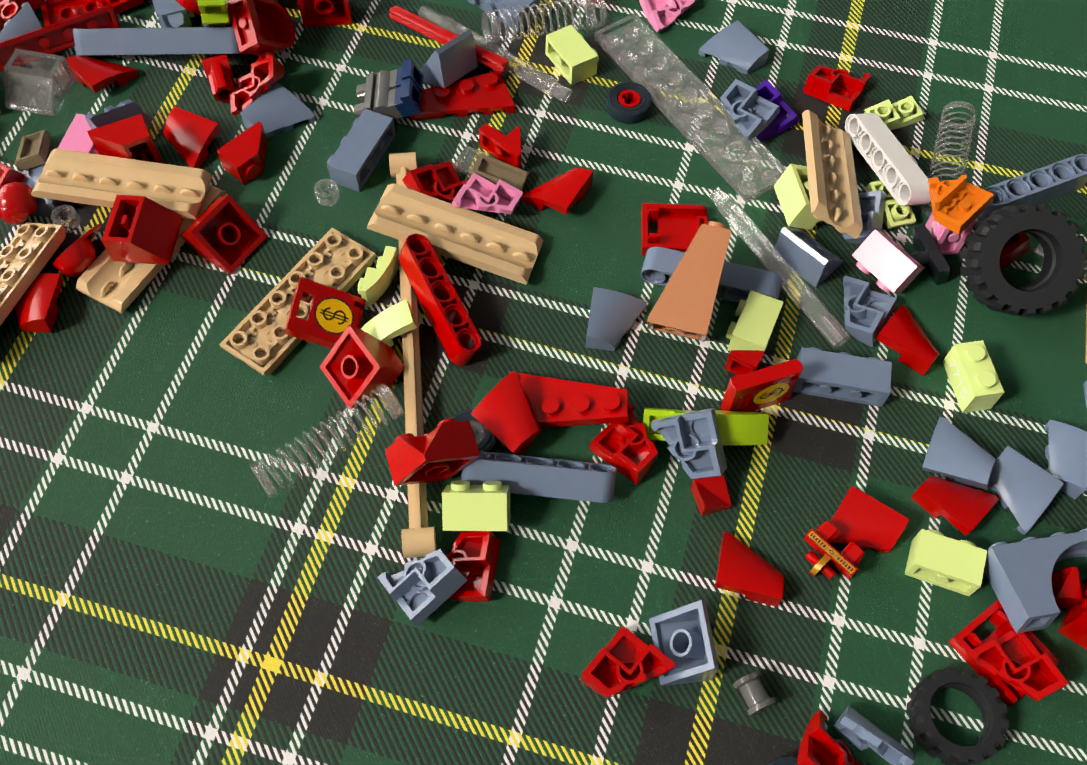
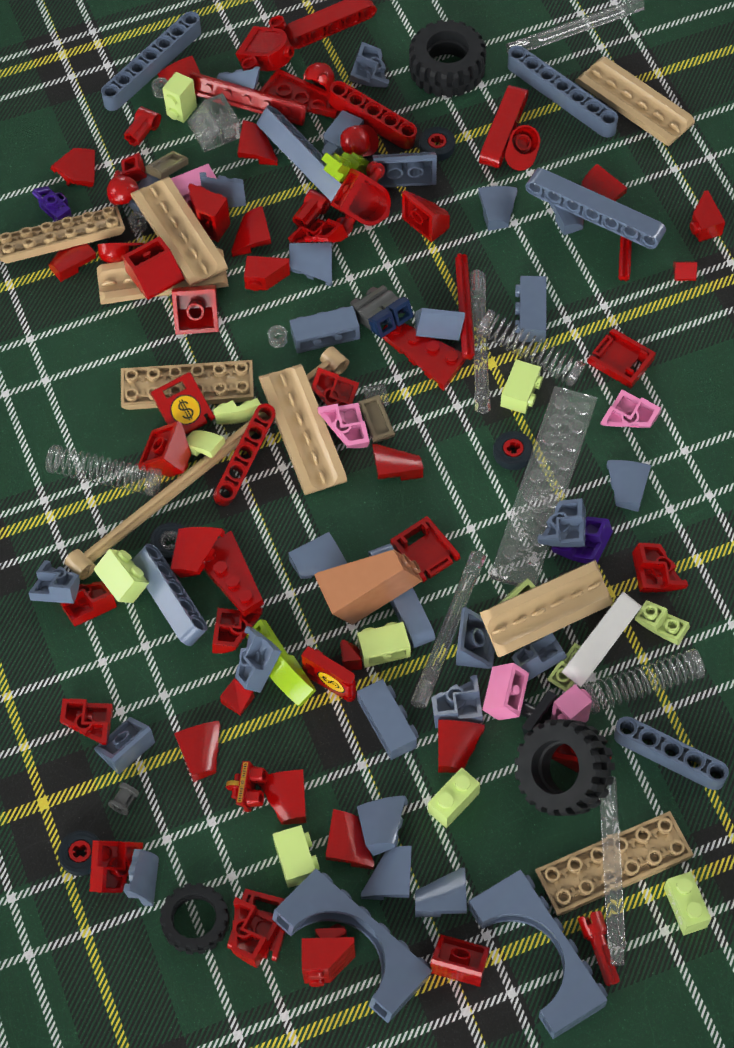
camera: 55 degrees right, 0 degrees up
(433, 455) = (131, 529): red slope -> none
(502, 147) = (404, 408): red slope -> none
(957, 202) = (571, 695): orange slope -> none

